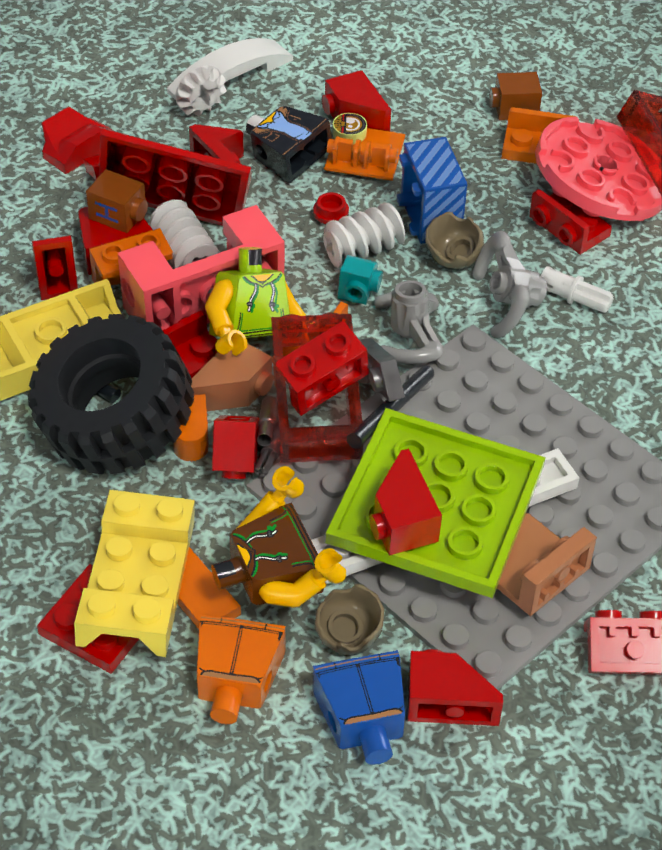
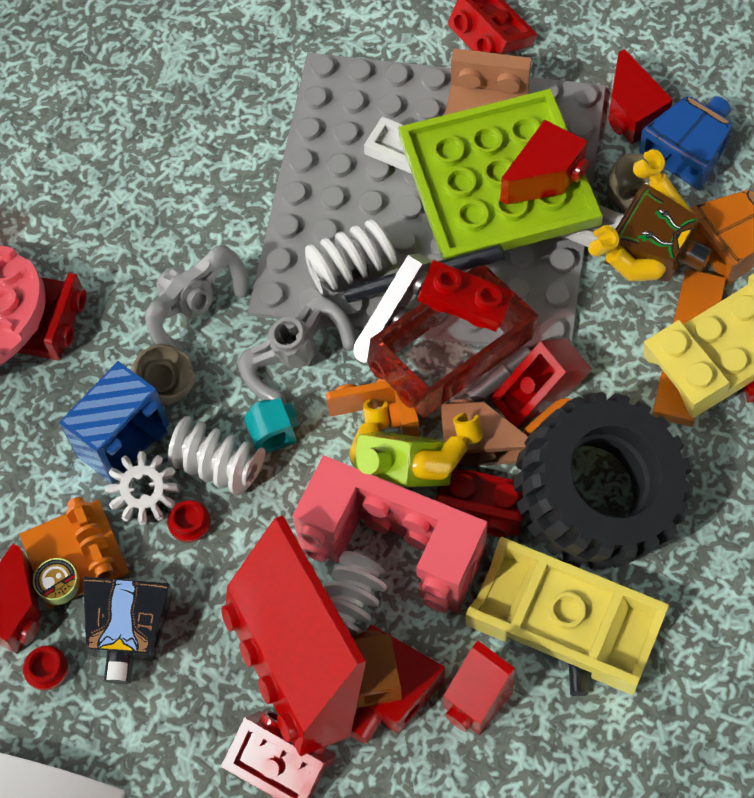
camera: 120 degrees left, 15 degrees up
(105, 257) = (418, 620): orange bracket -> none
(189, 89) = (109, 765): white gear -> none
(217, 142) = (190, 687): red slope -> none
(300, 100) = (45, 668): none -> red plate
(373, 186) = (138, 474): none -> white gear
(453, 380) = (349, 254): none -> white piece
(577, 290) = (144, 259): white axle -> none

